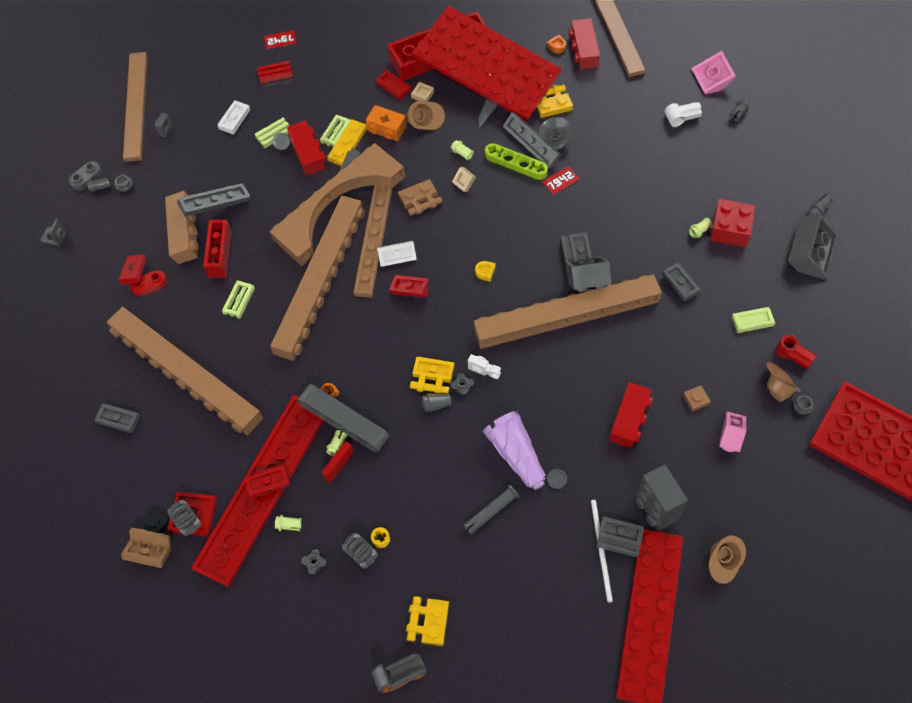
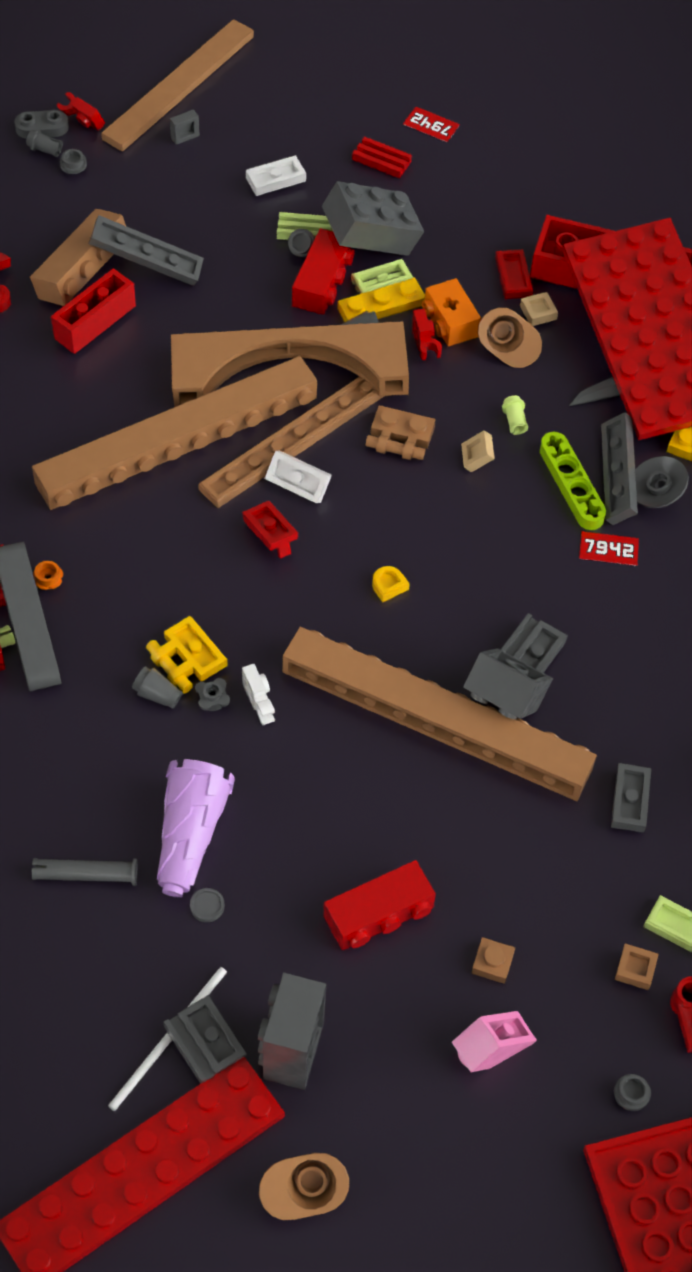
camera: 35 degrees right, 5 degrees down
(103, 153) = (86, 114): none -> red plate
(234, 312) = (64, 392): yellowish green tile -> none
(308, 104) = (372, 218): none -> dark grey brick
(383, 142) = (423, 332): none -> red plate
(754, 351) = (636, 966): none -> medium nougat plate
(779, 383) = (629, 1033): medium nougat piece -> none

